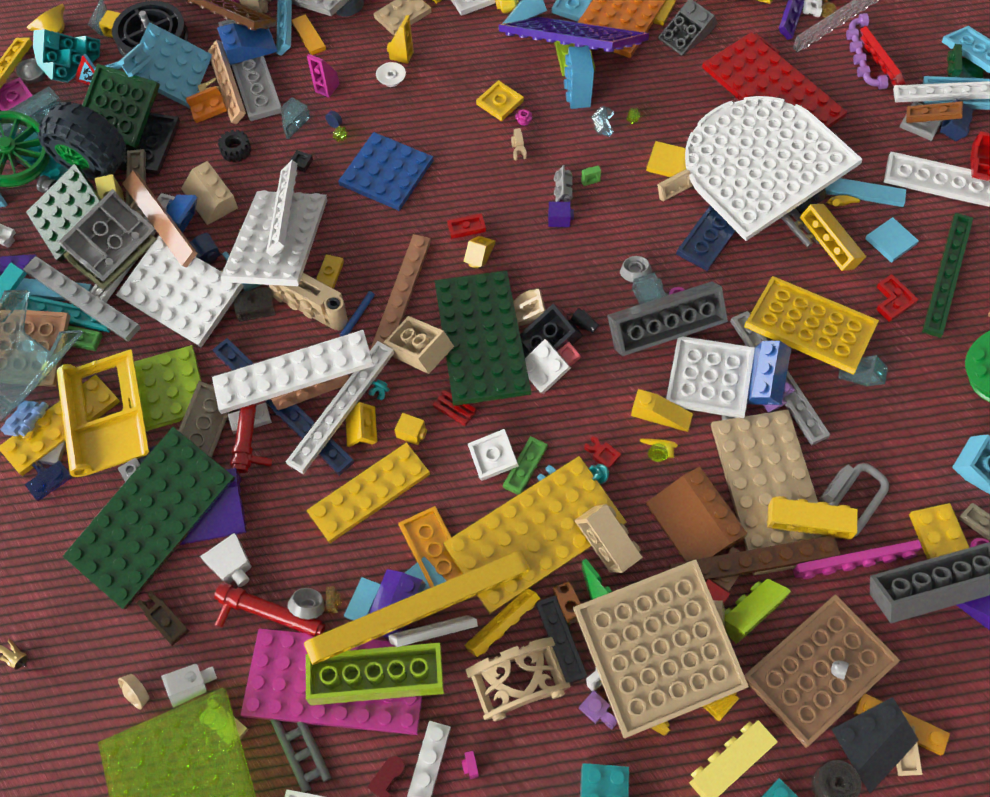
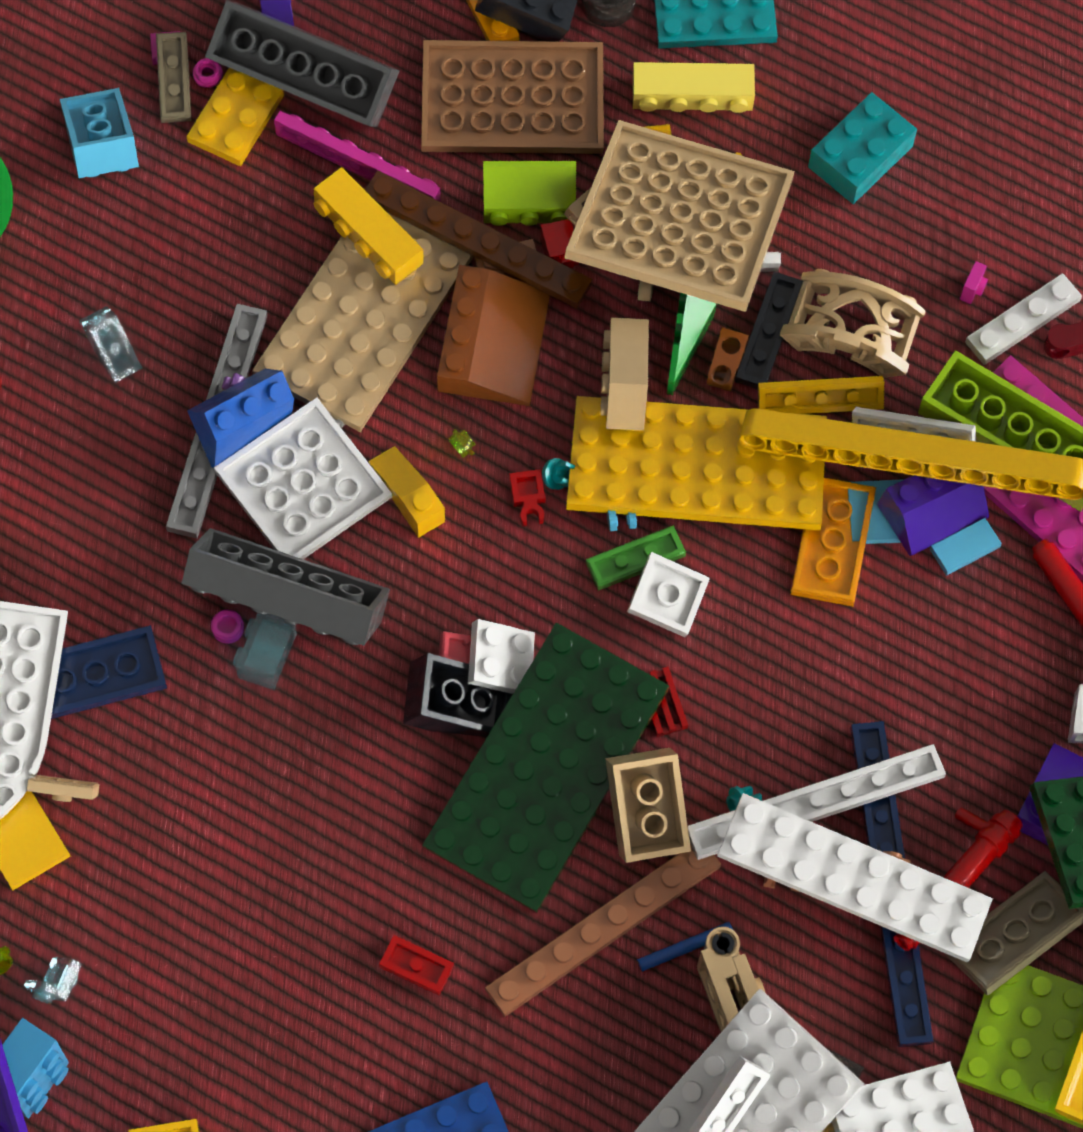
camera: 145 degrees left, 5 degrees up
(306, 603) = (1040, 585): light grey hat -> none
(330, 270) = (674, 1050): yellow plate -> none
(333, 599) = (1002, 568): clear yellow plate -> none
(361, 425) = (804, 764): yellow panel -> none
(368, 492) = (860, 674): yellow plate -> none
(410, 429) = (745, 710): yellow brick -> none
(478, 251) = (433, 905): yellow slope -> none
(518, 143) = (213, 1051): tan plate -> none
(524, 117) = (164, 1105): dark pink plate -> none
(529, 307) = (441, 763): tan slope -> none
(560, 214) = (268, 873): dark purple brick -> none
(563, 179) = (227, 912): light grey hinge -> none
(584, 320) = (387, 687): black cone -> none
(591, 175) = (163, 903): bright green plate -> none
(596, 708) = (790, 239): medium lavender plate -> none
(635, 267) = (247, 704): light grey hat -> none
(668, 444) = (444, 453): yellow bar -> none
(812, 324) = (109, 442): yellow plate -> none
(839, 669) = (498, 72): light grey hinge -> none
(845, 479) = (282, 247): light grey bar -> none

